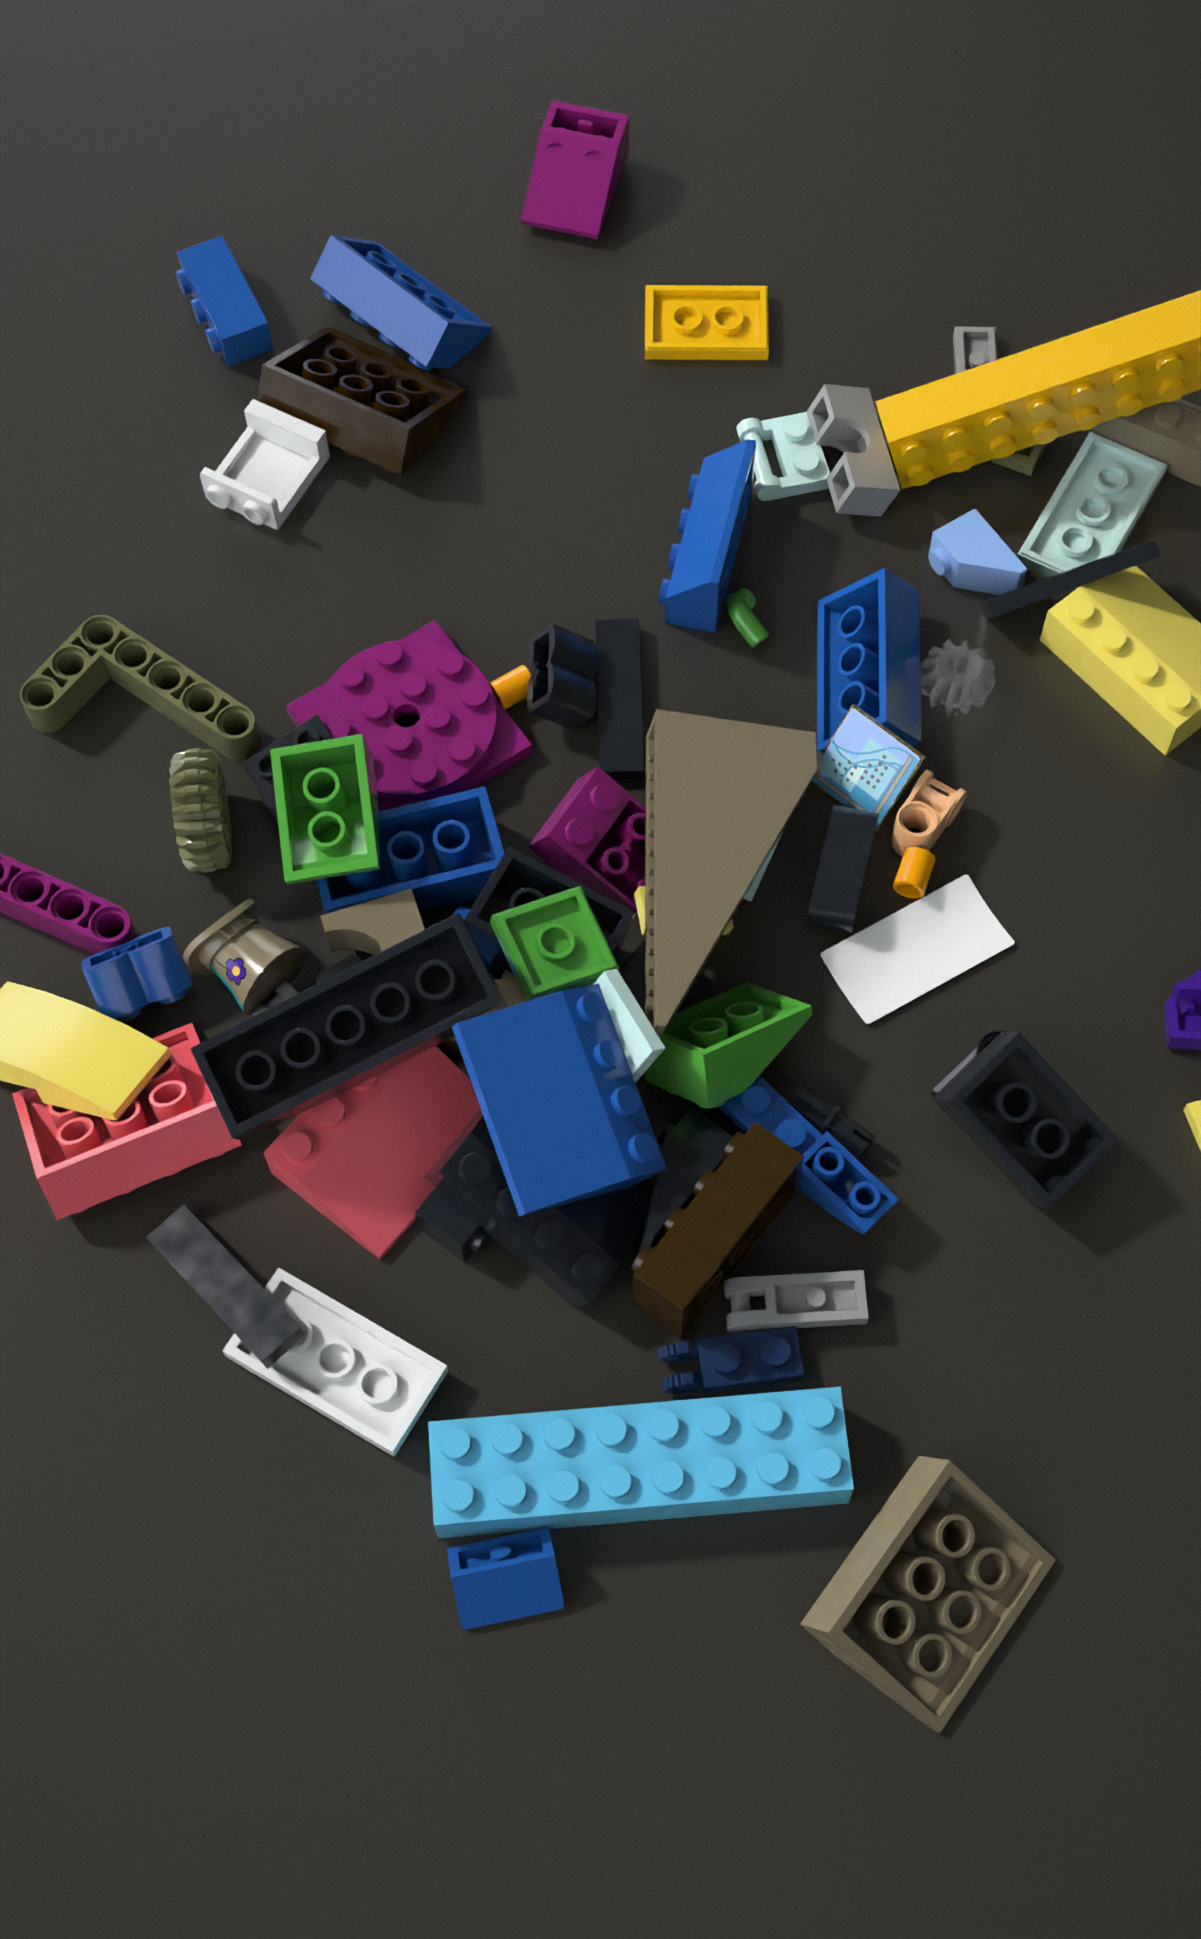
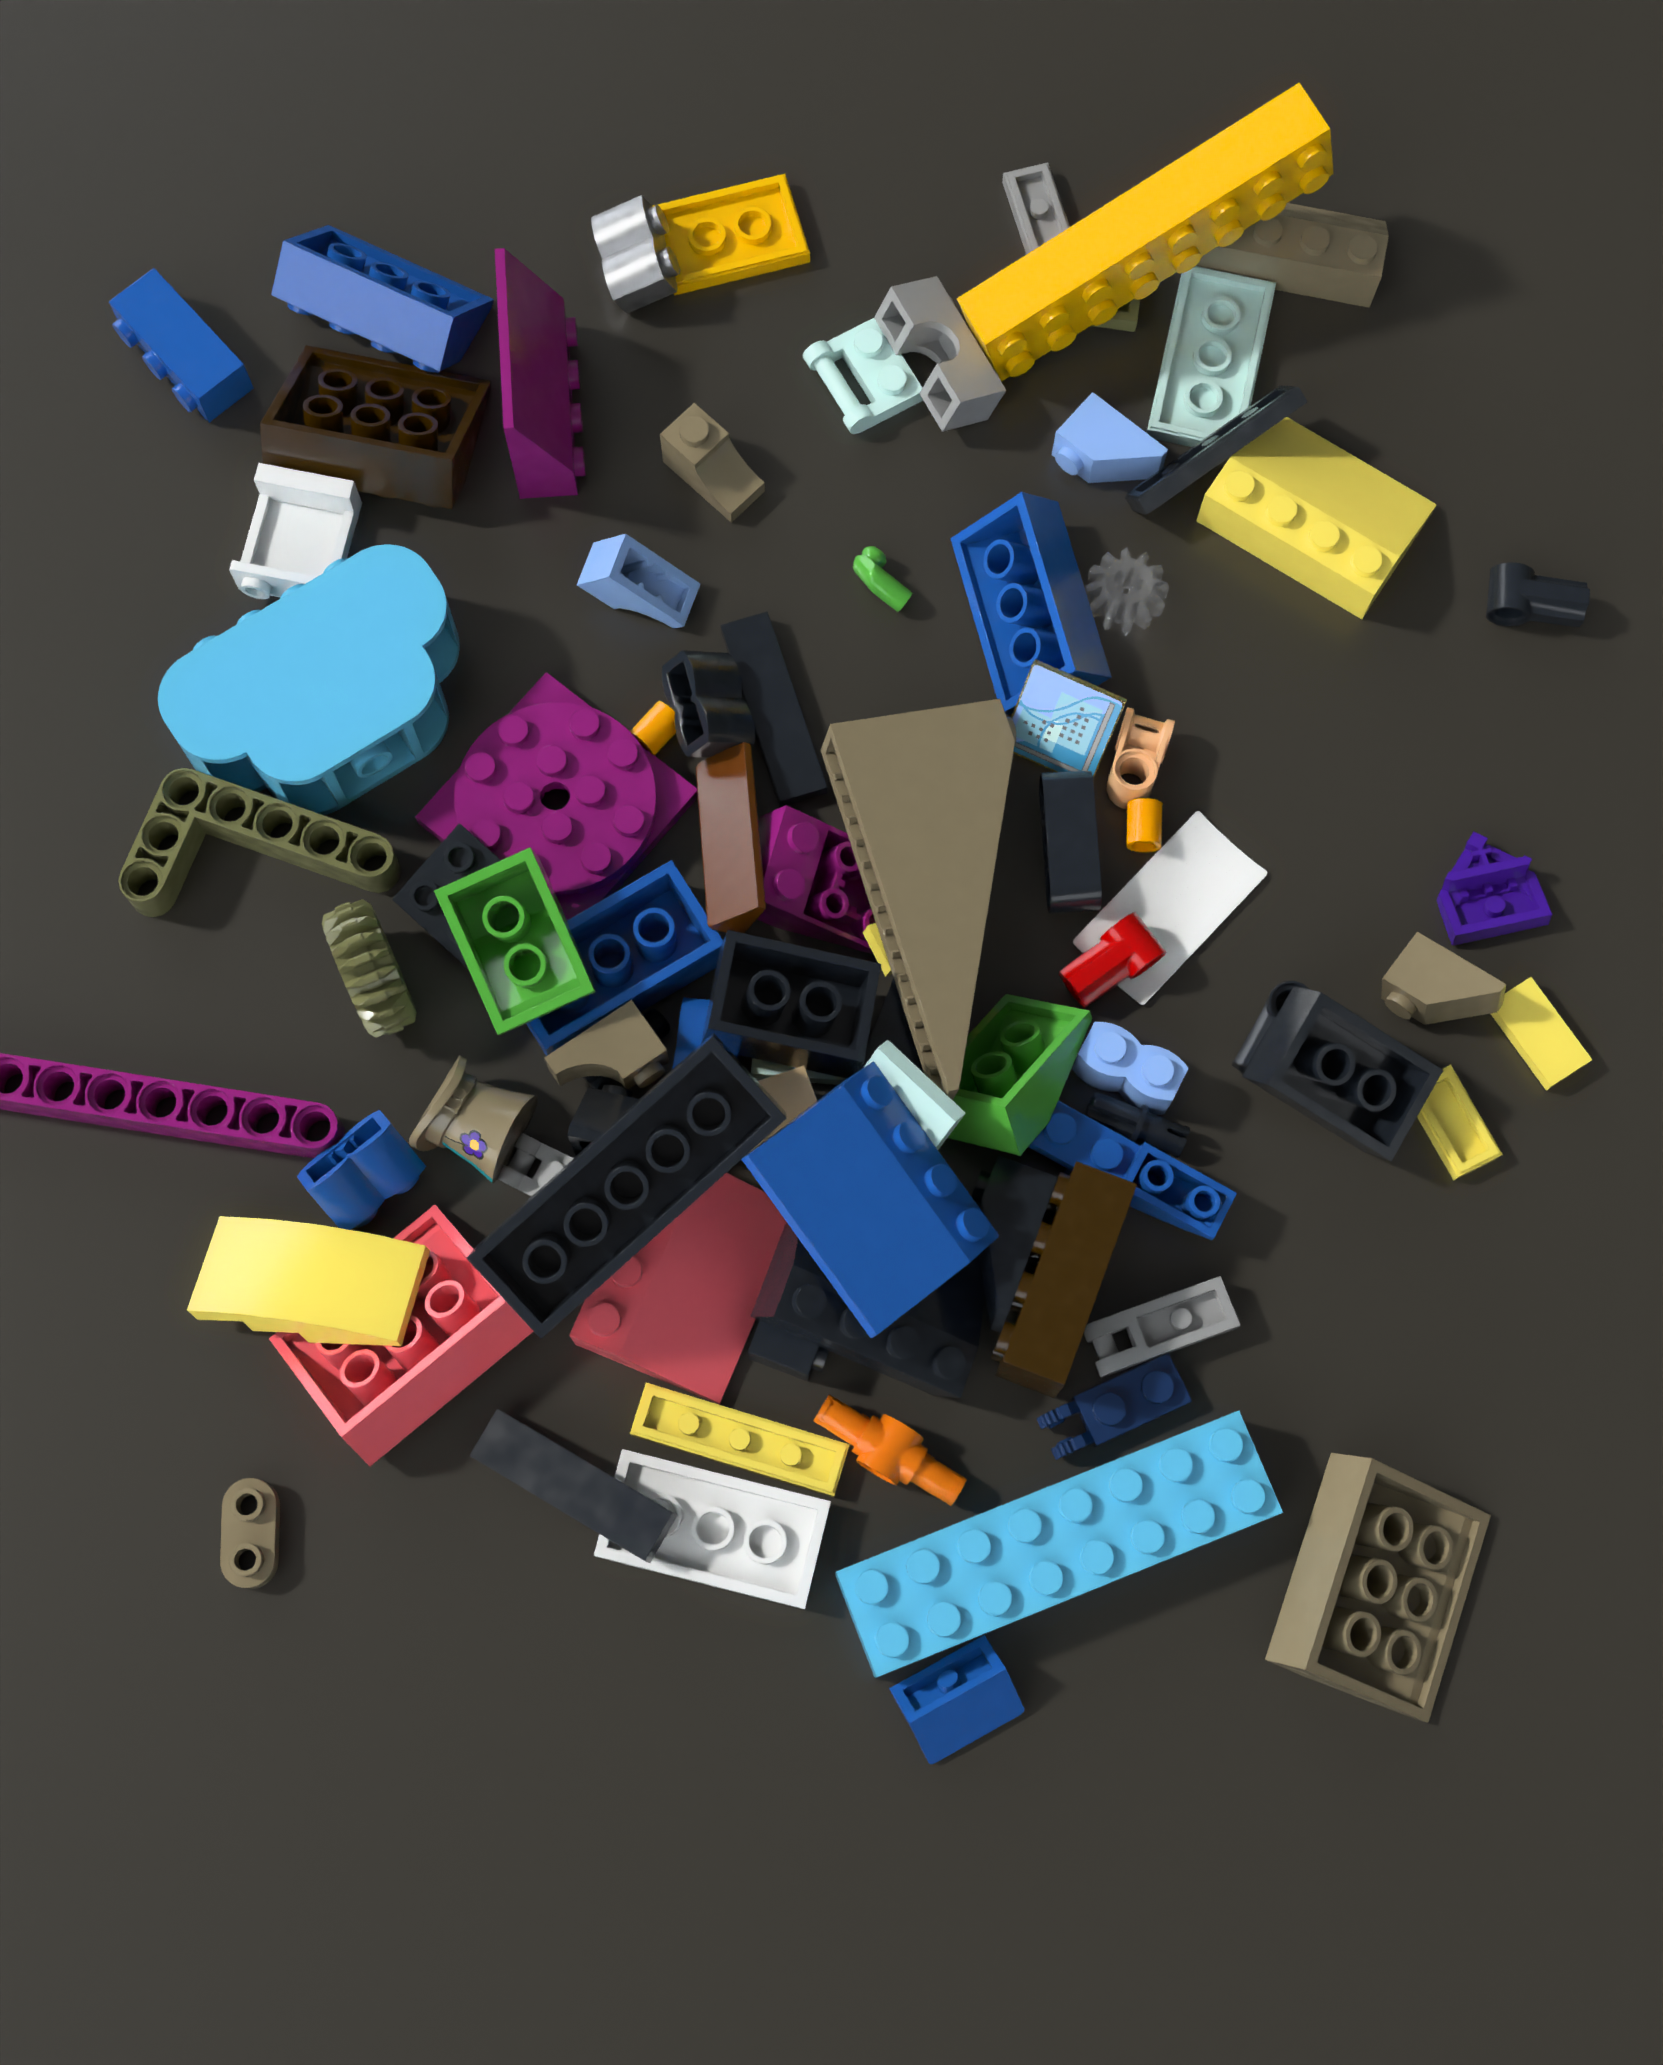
camera: 20 degrees left, 10 degrees up
(243, 578) = (322, 684): none -> medium azure brick
(387, 1294) = (739, 1440): none -> light yellow tile
(501, 388) = (538, 382): none -> magenta slope
(515, 1337) = (890, 1450): none -> orange pin
(535, 564) = (638, 580): none -> light blue arch
(542, 785) = (730, 840): none -> slope
(553, 944) = (811, 1029): bright green tile -> none
(576, 169) = (529, 83): magenta slope -> none
(620, 315) = (635, 253): none -> brick
(627, 489) = (709, 462): none -> dark tan arch
(709, 538) = (817, 498): blue slope -> none
(827, 1064) = (1118, 1063): none -> light blue brick
(861, 971) = (1122, 953): none -> red piece
(1123, 1201) = (1457, 1127): none -> light yellow tile
(1141, 1073) = (1438, 985): none -> dark tan slope

